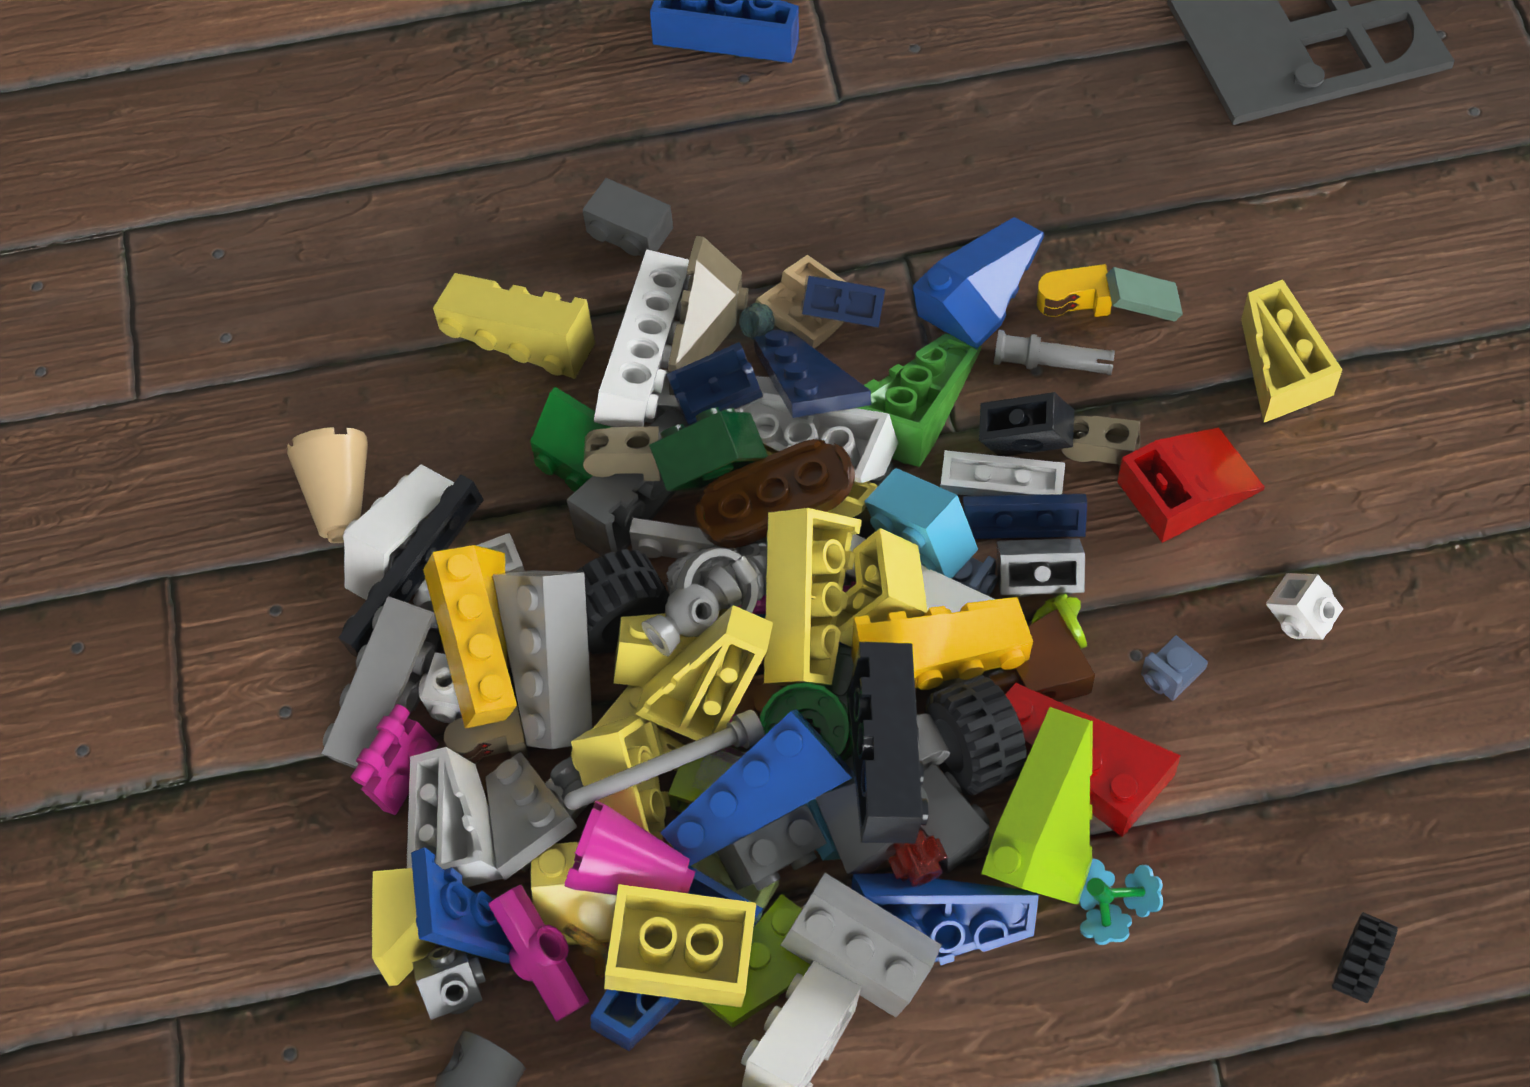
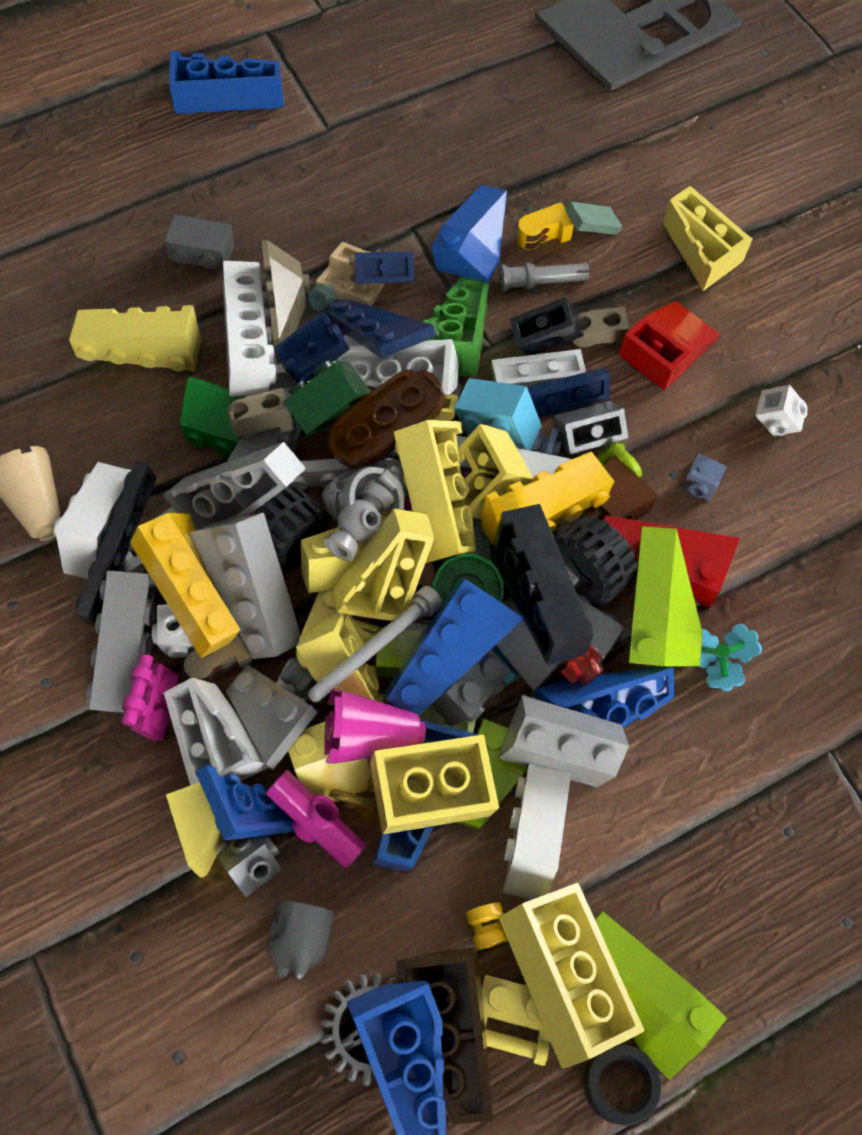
camera: 25 degrees left, 5 degrees up
(564, 533) = (235, 486): none -> light grey wedge

